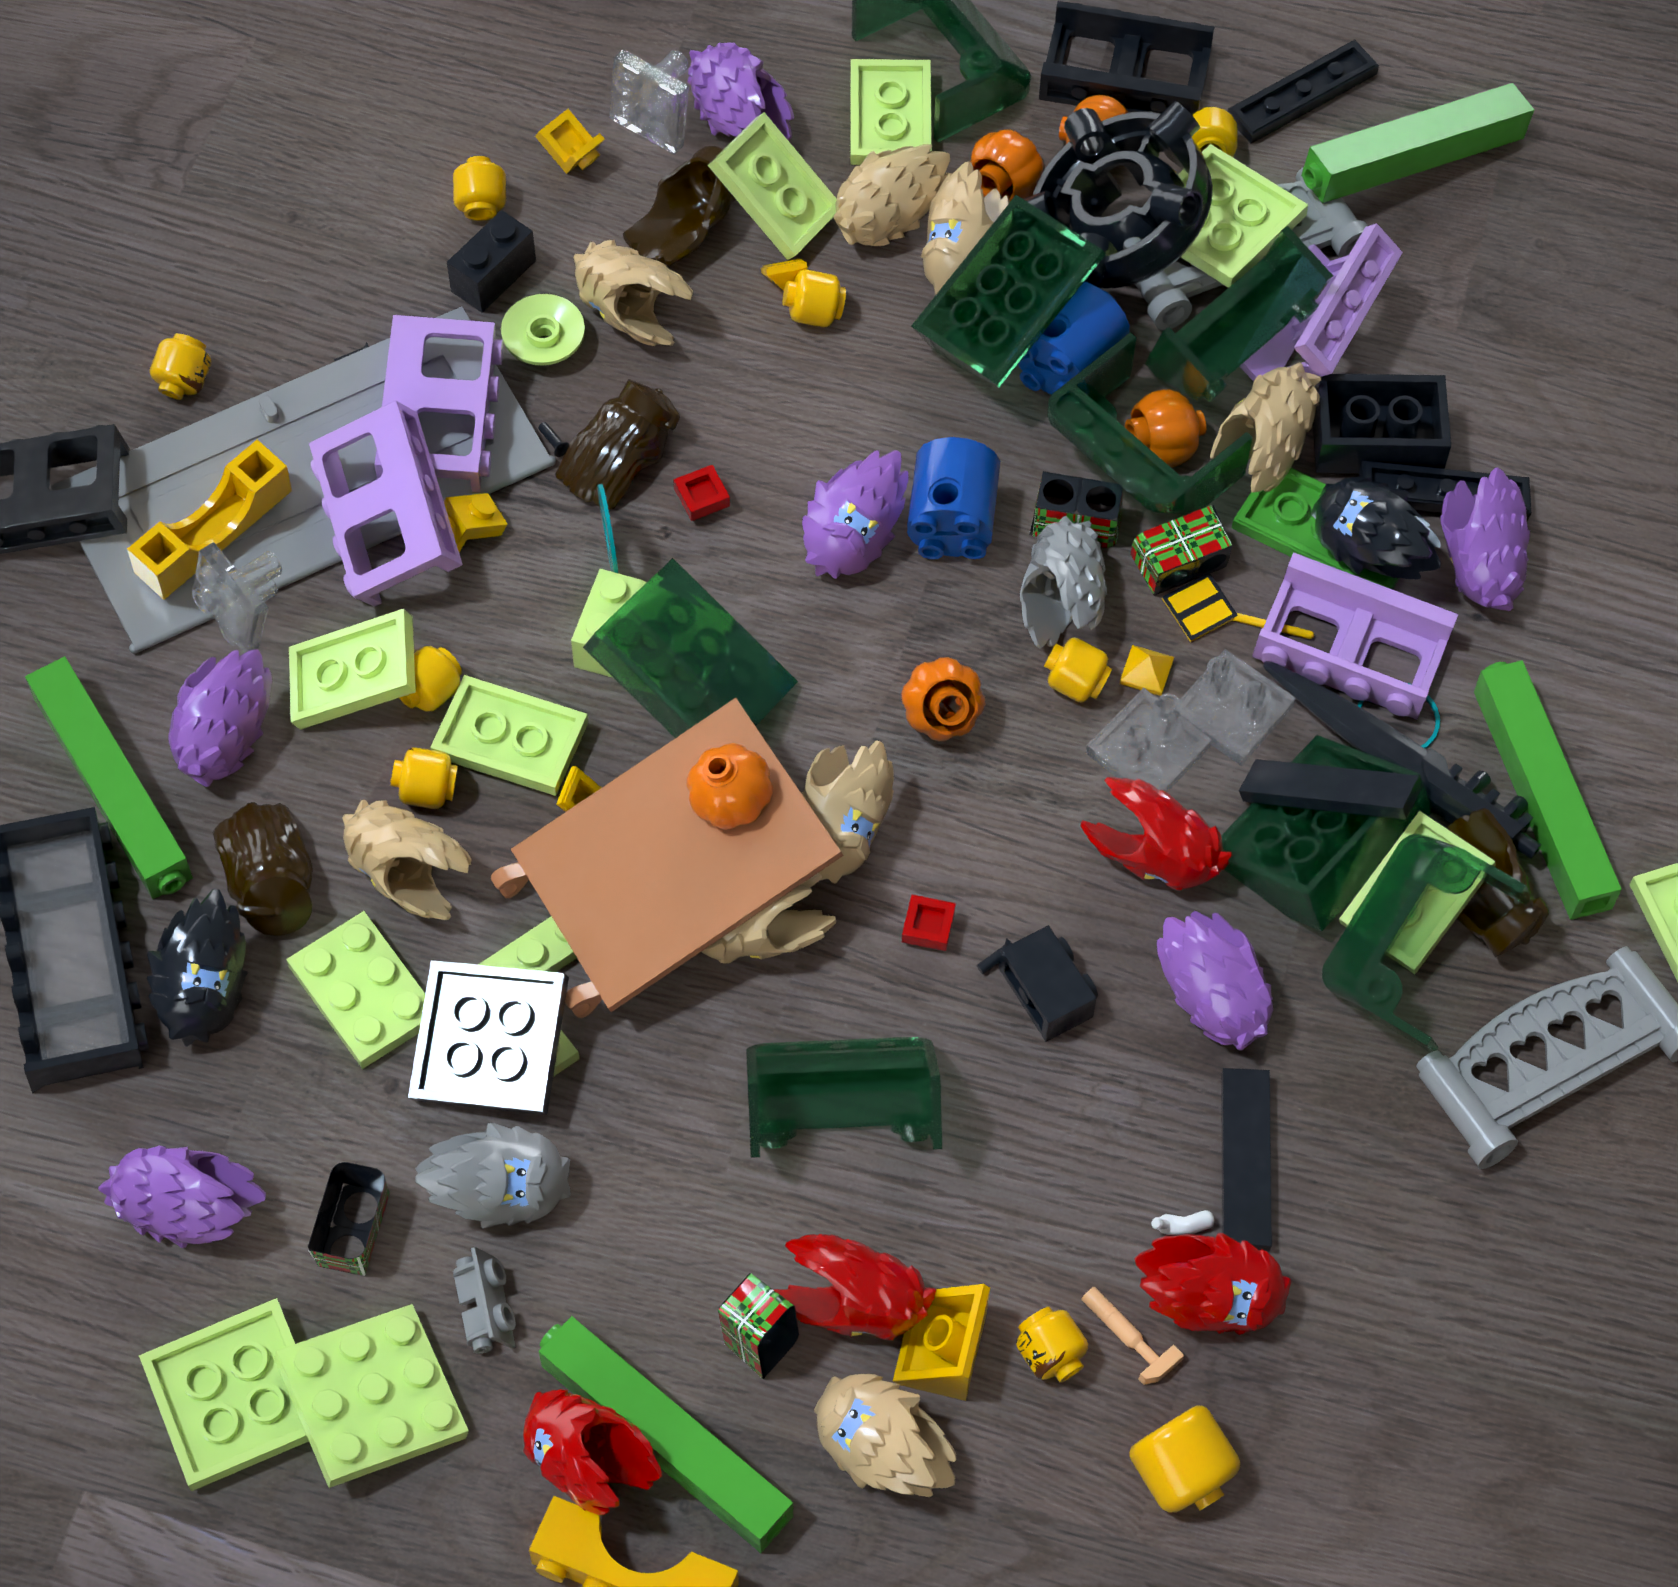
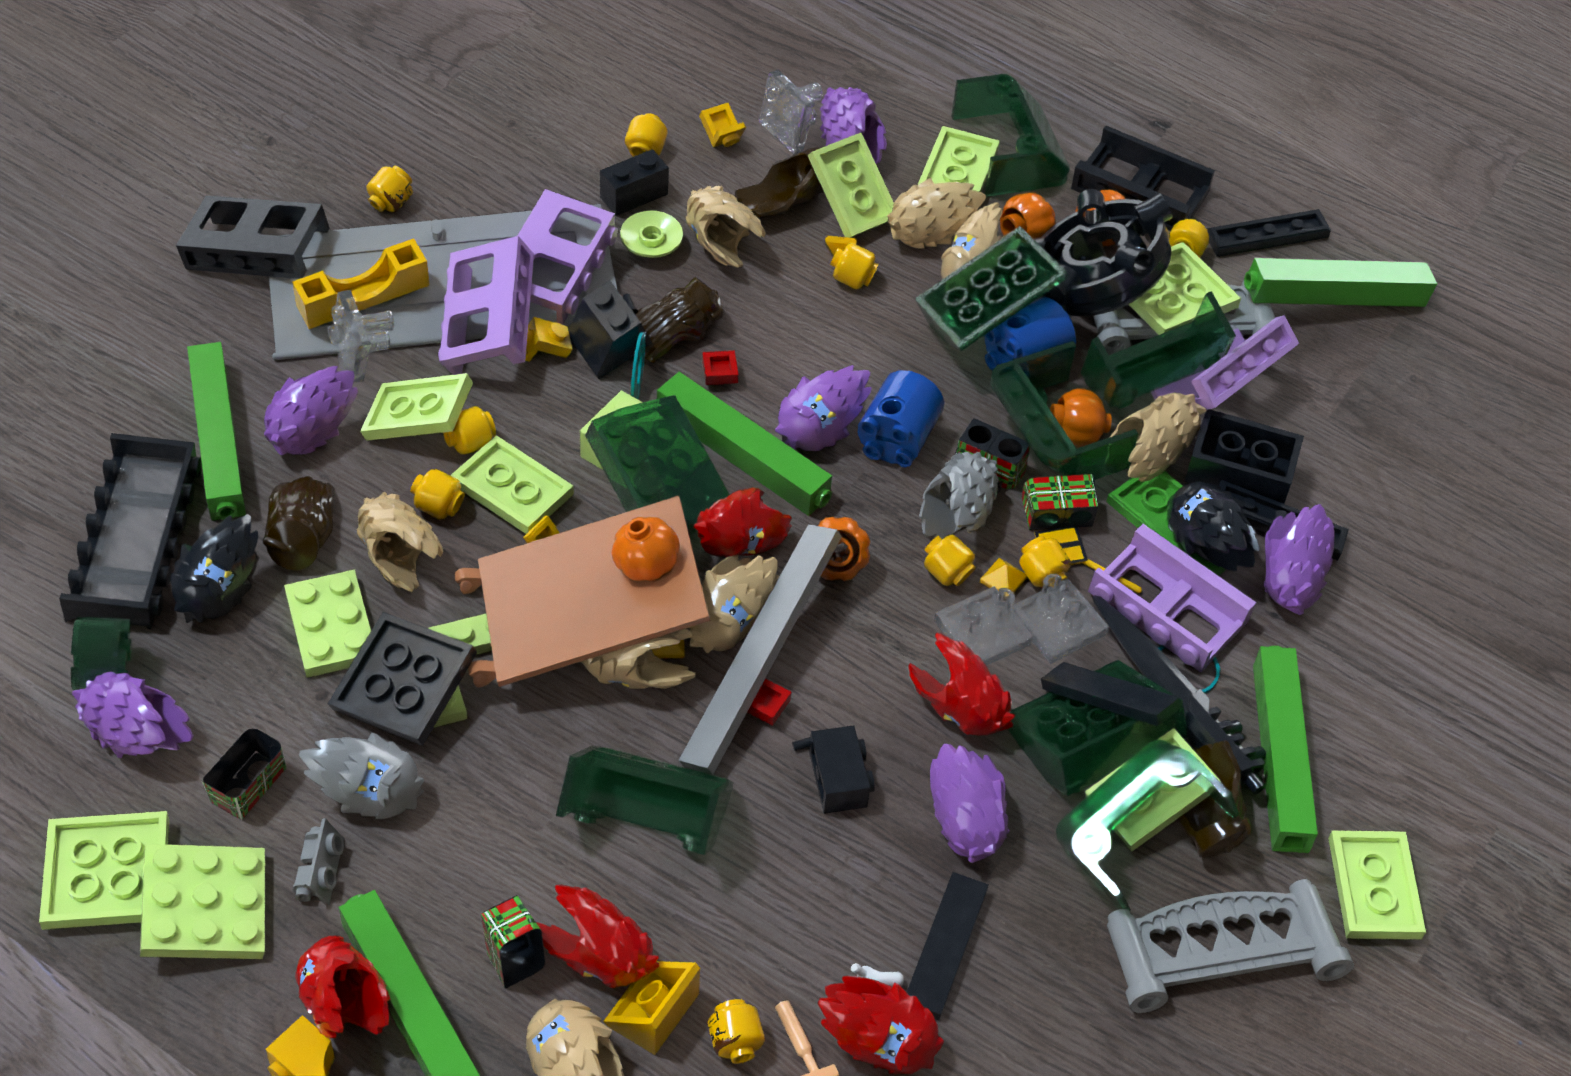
camera: 15 degrees right, 10 degrees down
(106, 1123) = (99, 648): none -> clear green brick
(544, 487) = (605, 330): none -> black slope
(778, 590) = (750, 446): none -> bright green brick
(816, 706) = (741, 525): none -> red head
(903, 861) = (760, 649): none -> light grey tile
(1192, 637) = (1044, 558): none -> yellow head

